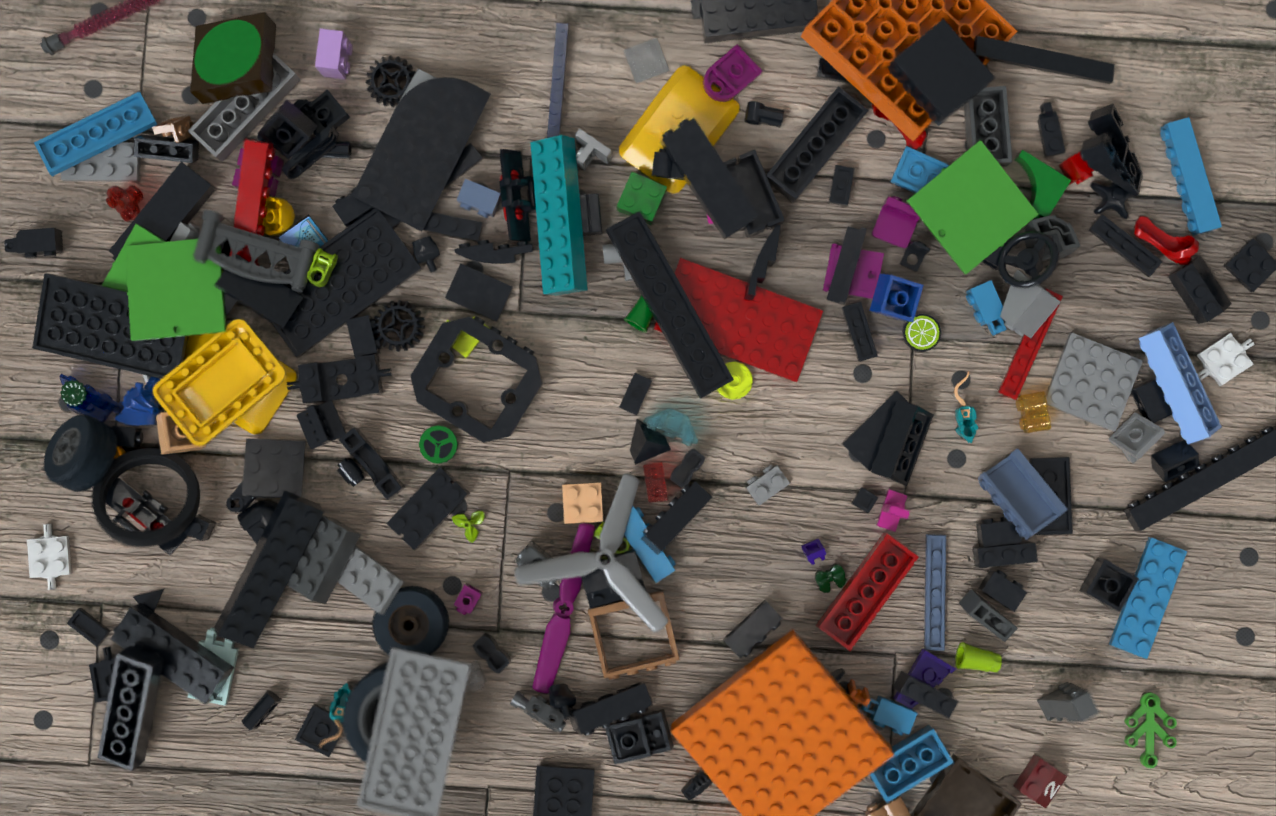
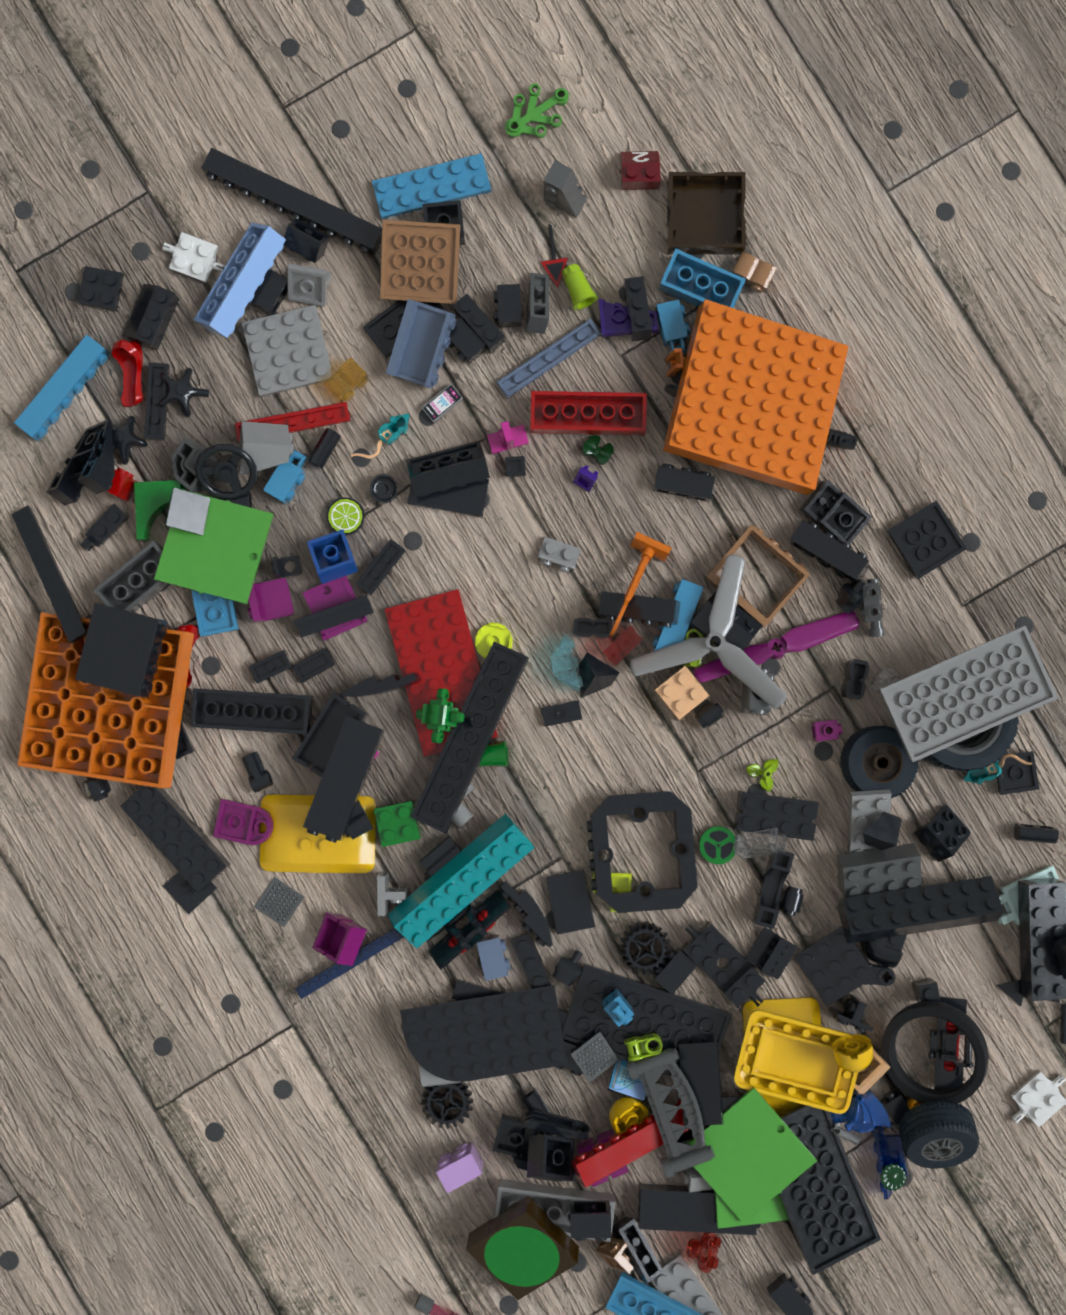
camera: 120 degrees left, 0 degrees up
(131, 381) = (846, 1135): none -> light grey piece
(194, 430) = (853, 1053): none -> yellow cylinder
(216, 125) = (590, 1220): none -> black brick
(228, 459) = (853, 1013): none -> black bracket
(315, 634) = (943, 834): none -> black bracket
(341, 223) = (594, 1057): none -> dark grey sticker
(352, 584) = (883, 832): none -> black slope
(366, 268) = (618, 1008): none -> dark azure brick
(415, 477) = (759, 843): none -> clear window
(548, 513) = (709, 714): none -> black brick
(582, 86) = (339, 938): none -> magenta piece
(704, 292) = (439, 715): none -> green piece
(718, 562) = (649, 549): none -> orange piece
(817, 221) = (313, 665): none -> black tile
(922, 378) = (383, 489): none -> black piece
(959, 477) = (442, 403): none -> tile
(990, 354) = (324, 448): none -> black axle
(1008, 653) = (555, 266): none -> piece
(1017, 205) = (187, 511): none -> piece
(1091, 542) = (420, 261): none -> medium nougat plate
(1119, 271) = (181, 391): none -> black animal

